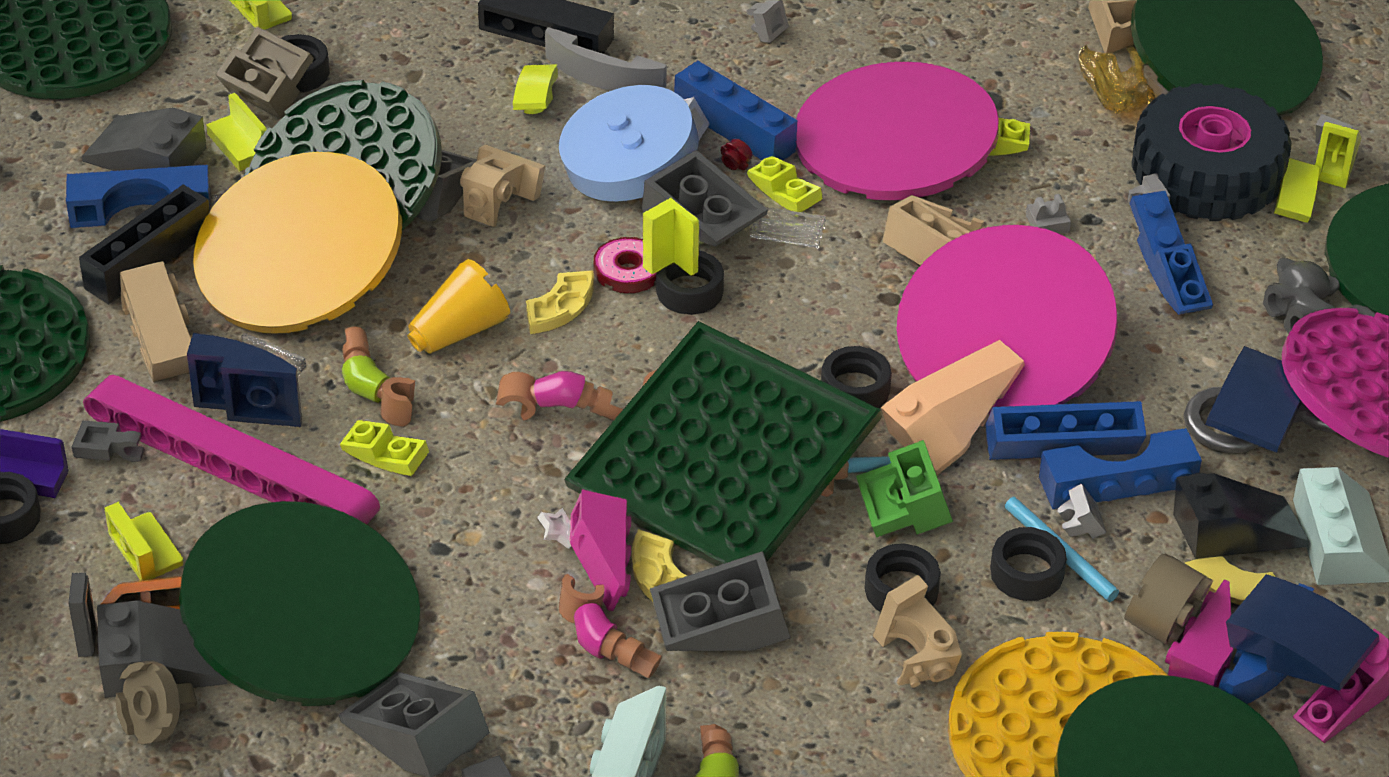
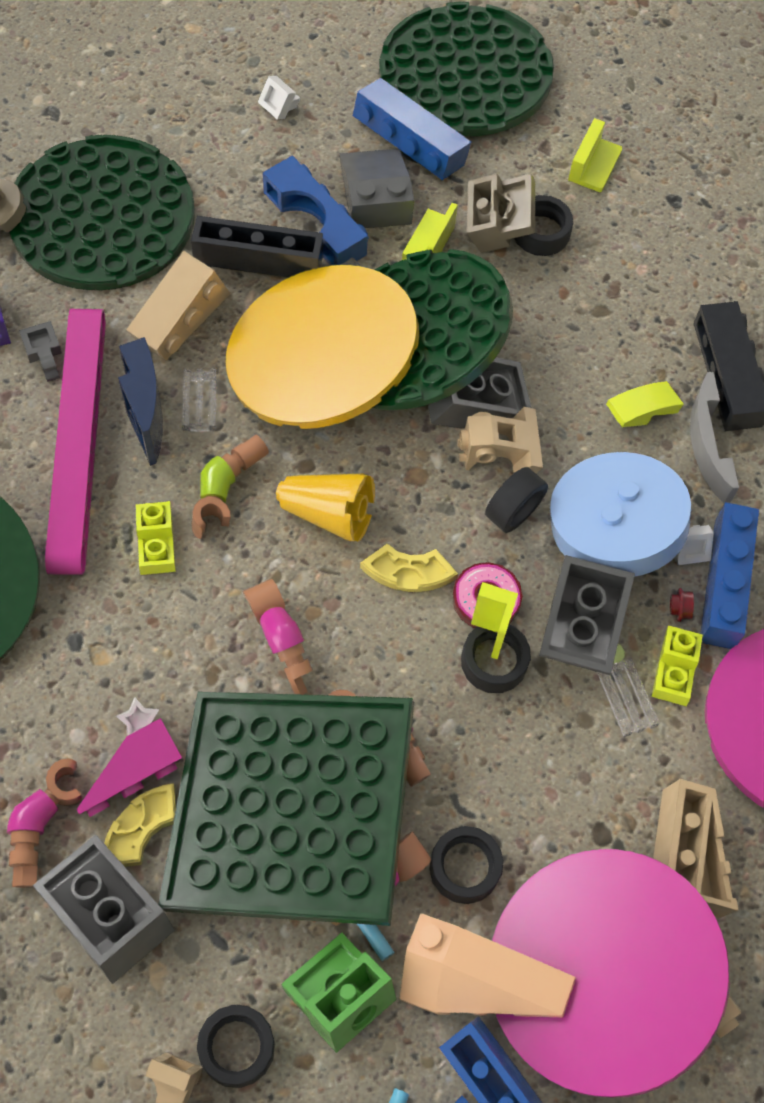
camera: 55 degrees right, 20 degrees up
(110, 92) = (411, 128): none -> blue brick
(562, 194) = (516, 499): none -> black tyre

